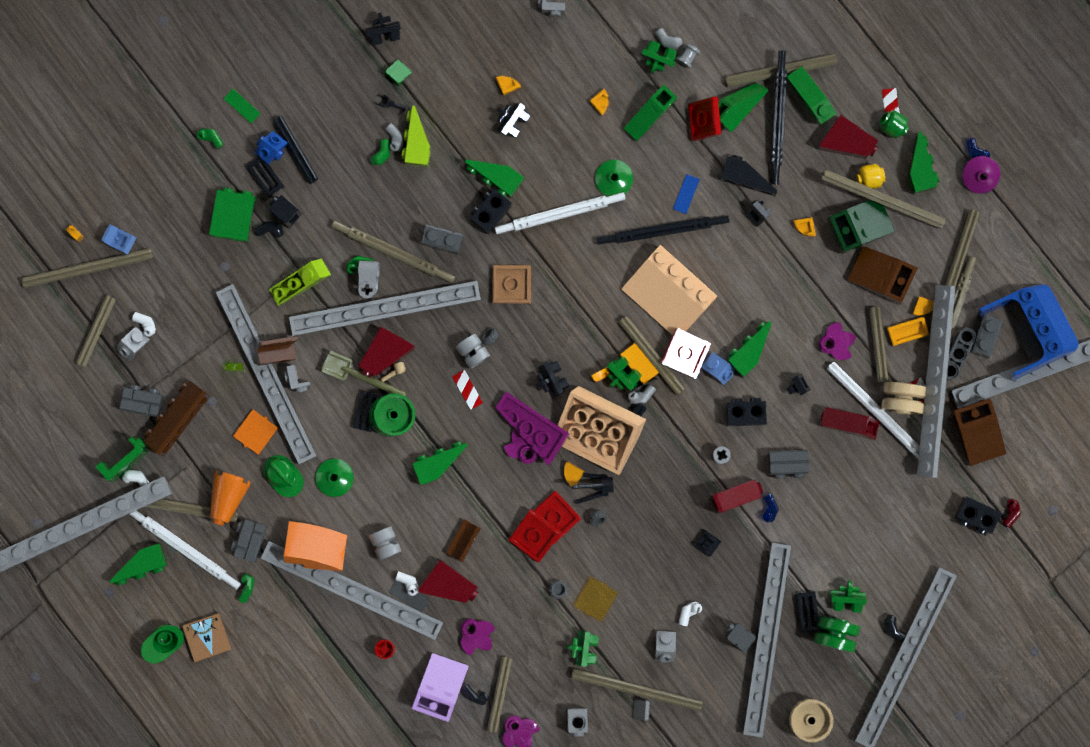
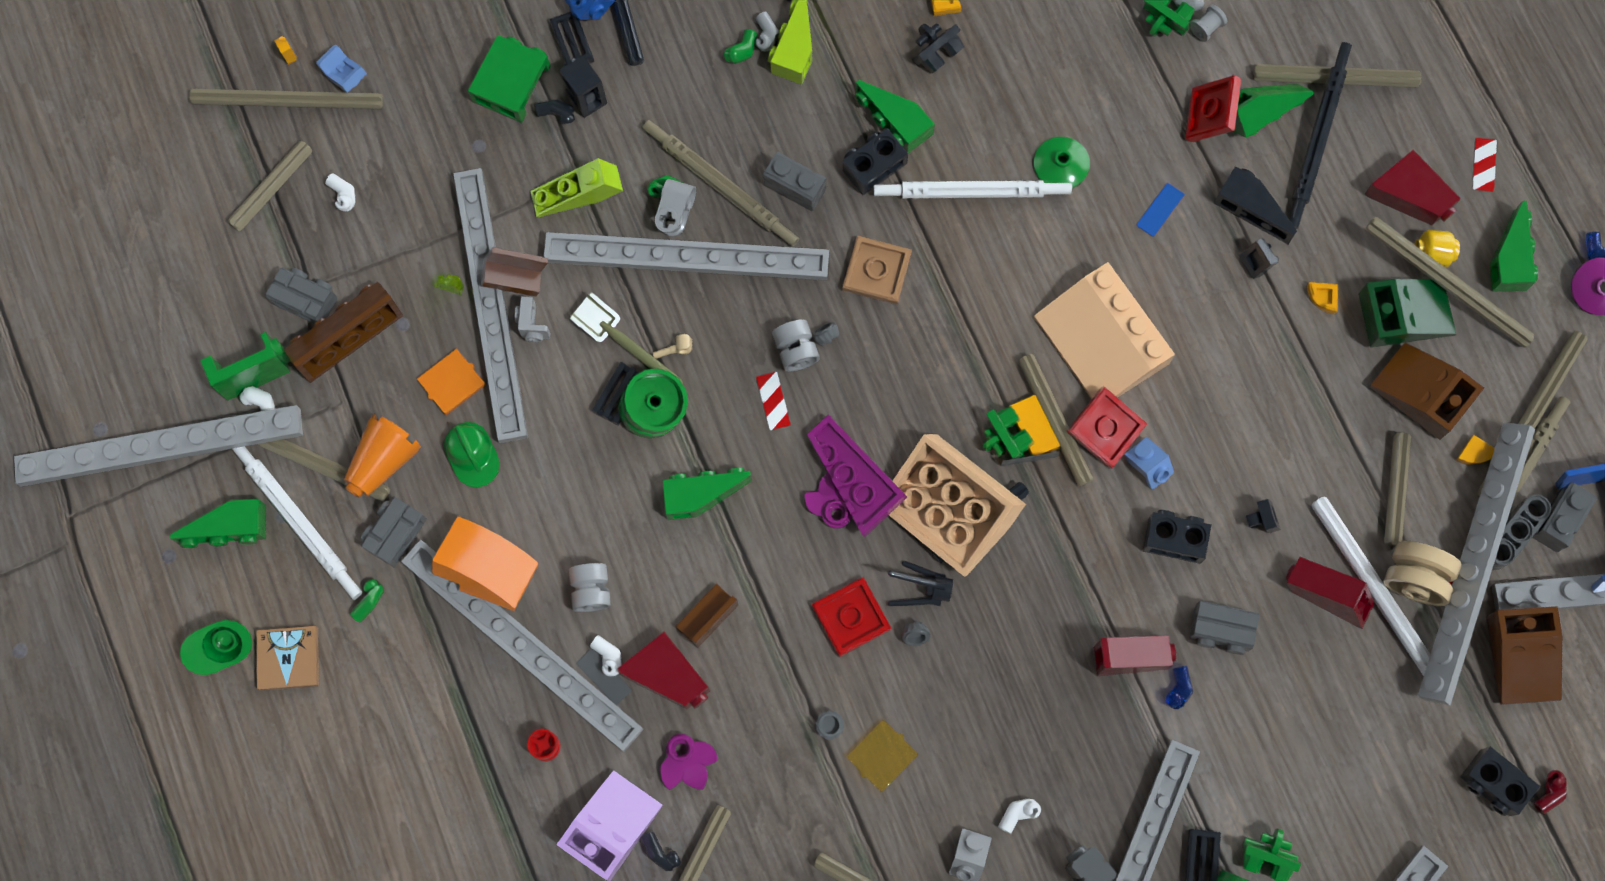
camera: 15 degrees right, 10 degrees down
(132, 343) = (314, 214): light grey bracket -> none
(341, 485) = (548, 489): green dish -> none
(384, 352) = (668, 314): dark red slope -> none
(534, 535) = (815, 635): red tile -> none
(549, 381) = (896, 416): black hips -> none
(572, 473) = (895, 559): light orange tile -> none
(580, 648) = (839, 823): green hips -> none
(600, 102) = (1068, 56): light orange tile -> none
(601, 375) = (972, 427): light orange tile -> none
(641, 397) = (1027, 476): light grey arm -> none
(650, 112) = (1139, 82): green slope -> none
(662, 230) = (1113, 248): black axle -> none
(708, 543) = (1072, 716): black tile -> none
(715, 456) = (1121, 581): light grey bush -> none
(749, 354) = (1198, 455): green slope -> none
(811, 95) = (1374, 117): green slope -> none
(840, 342) = (1339, 470): magenta plate -> none
(894, 124) = (1486, 184): green head -> none
(908, 331) = (1445, 482): light orange tile -> none

